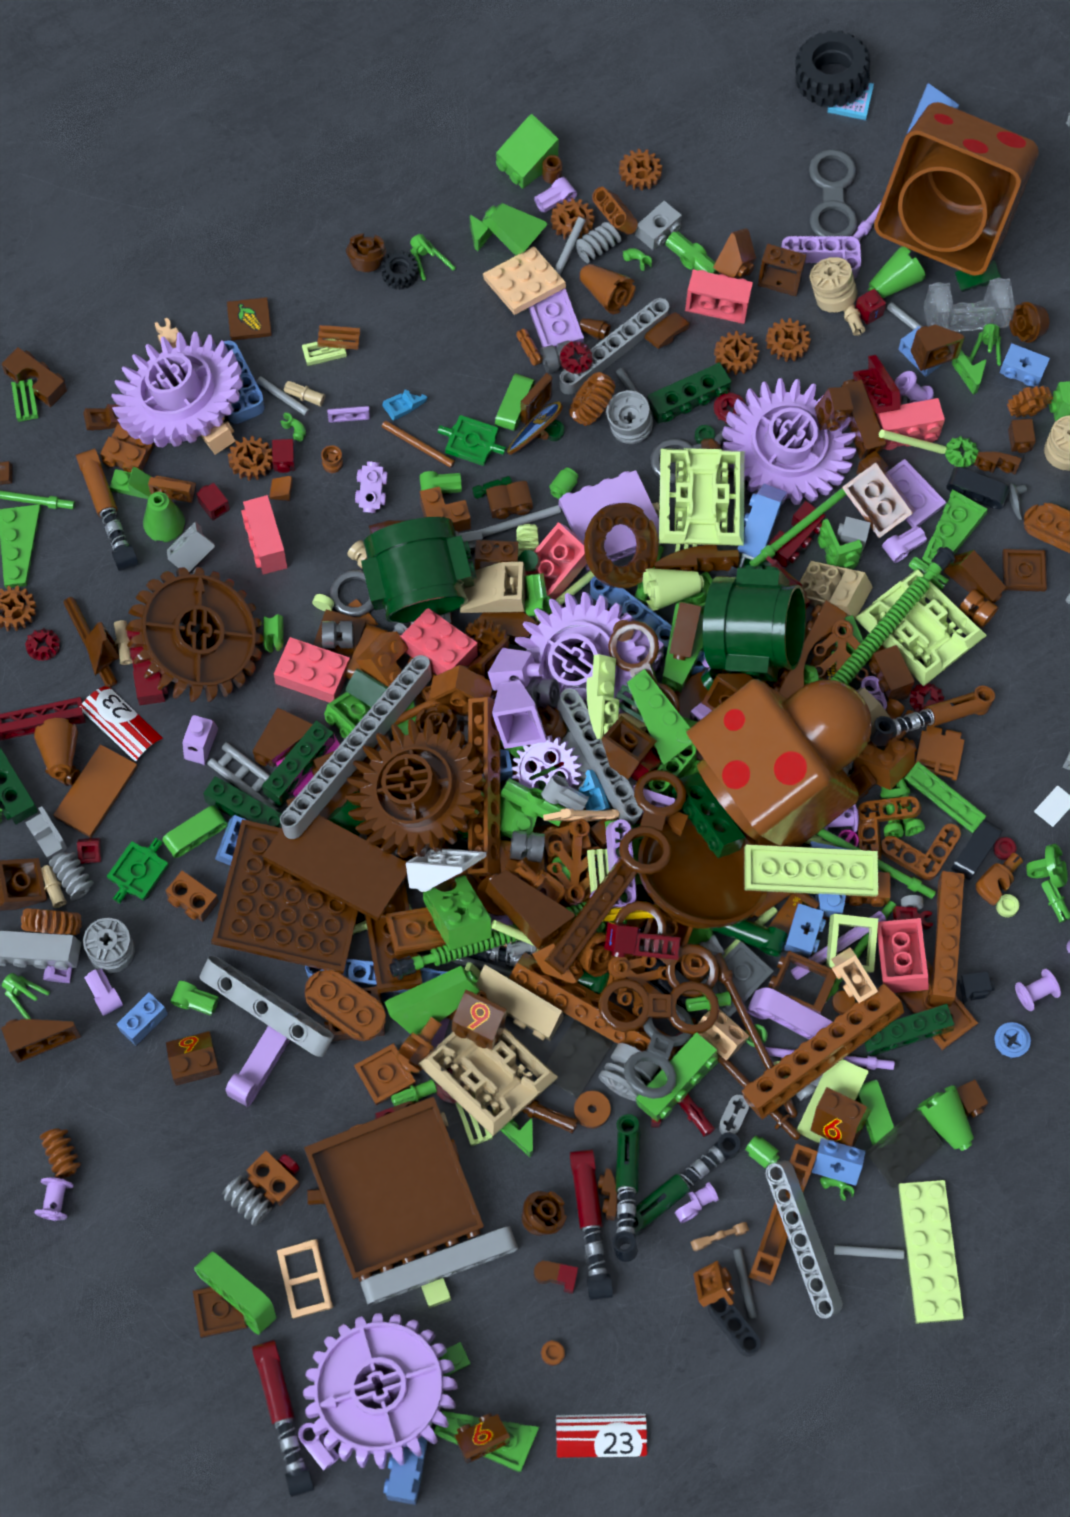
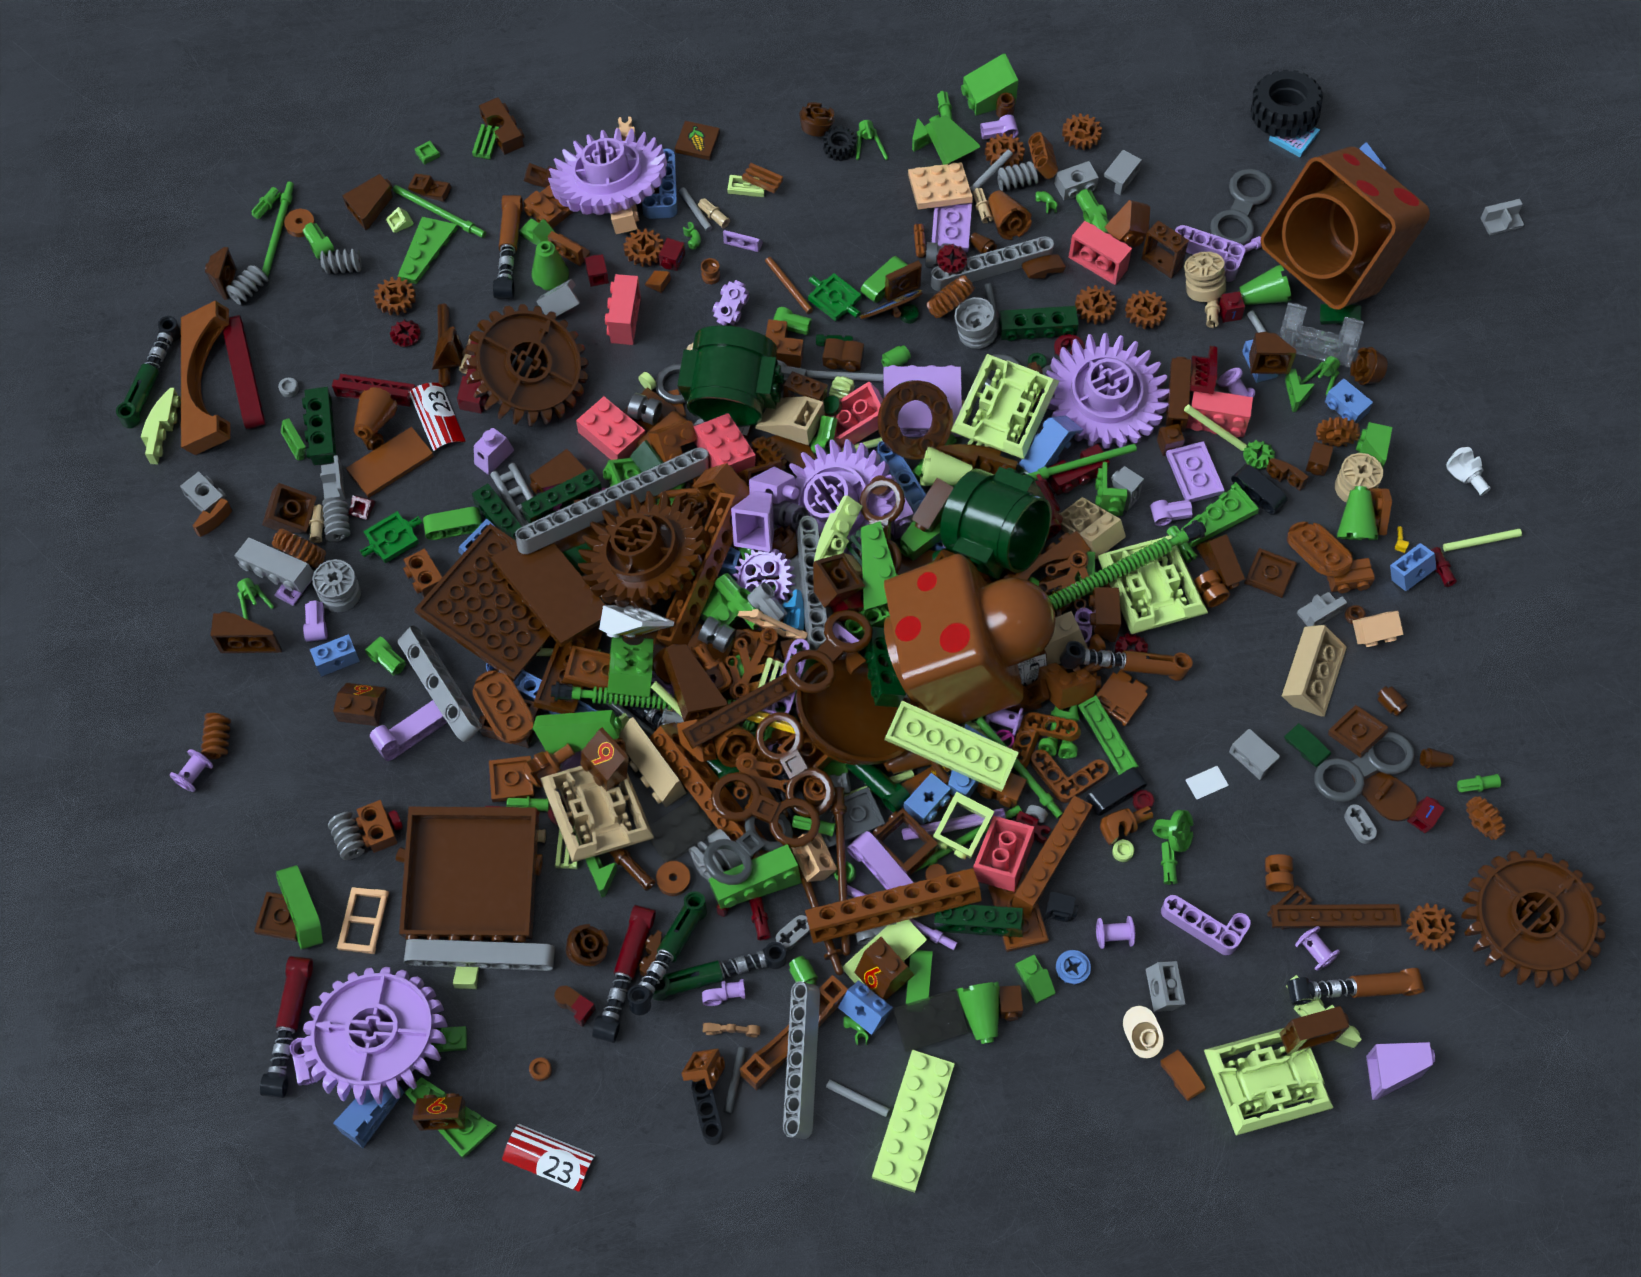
camera: 25 degrees right, 5 degrees down
(273, 633) = (594, 390): bright green piece -> none
(402, 404) = (791, 249): dark azure slope -> none
(488, 190) = (944, 105): none -> bright green axle
(575, 285) = (982, 205): none -> tan axle
(620, 939) = (756, 738): dark red brick -> none
(674, 951) = (769, 748): dark red slope -> none
(700, 197) = (1123, 170): none -> light grey panel
(833, 408) = (1154, 373): reddish brown brick -> none
(856, 979) = (949, 850): light nougat brick -> none
(878, 499) = (1161, 463): brick -> none
(982, 1066) = (1035, 978): none -> bright green slope
(1015, 499) = (1289, 510): dark grey bar -> none

